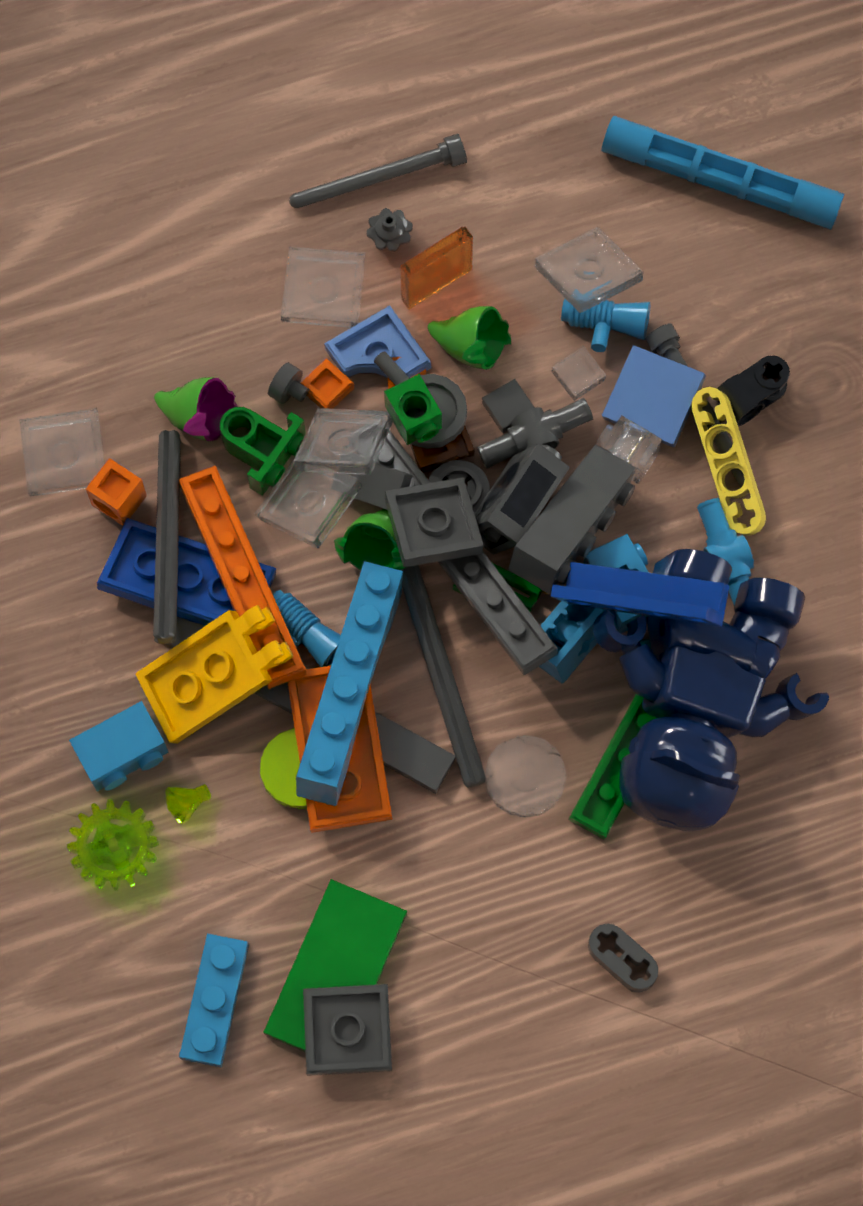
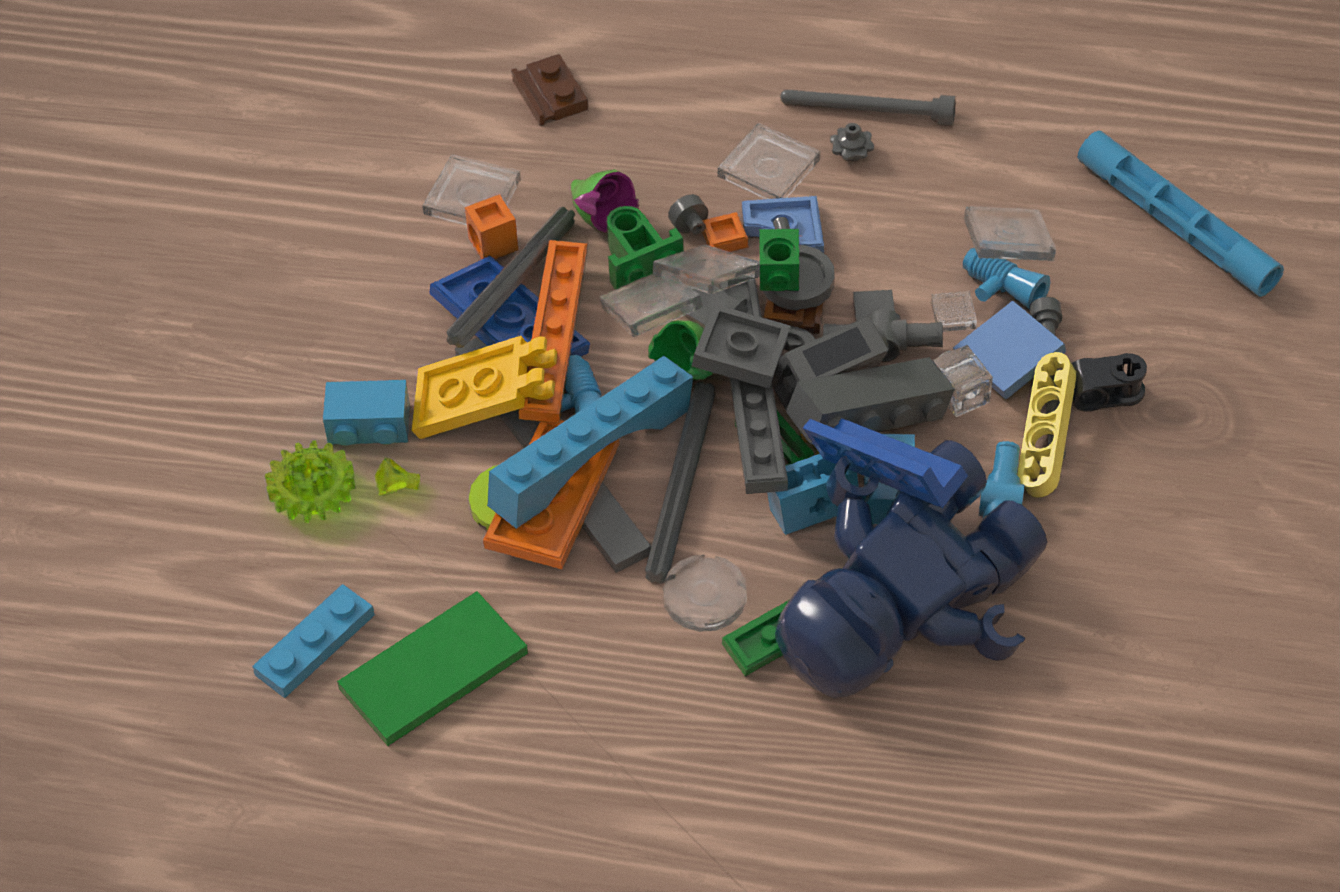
camera: 30 degrees right, 20 degrees down
(66, 296) = (550, 89): none -> reddish brown plate
(347, 1030) = (409, 710): dark grey tile -> none
(436, 267) = (871, 176): clear orange tile -> none
(473, 336) = (876, 241): hat -> none
(629, 950) = (707, 772): dark grey beam -> none

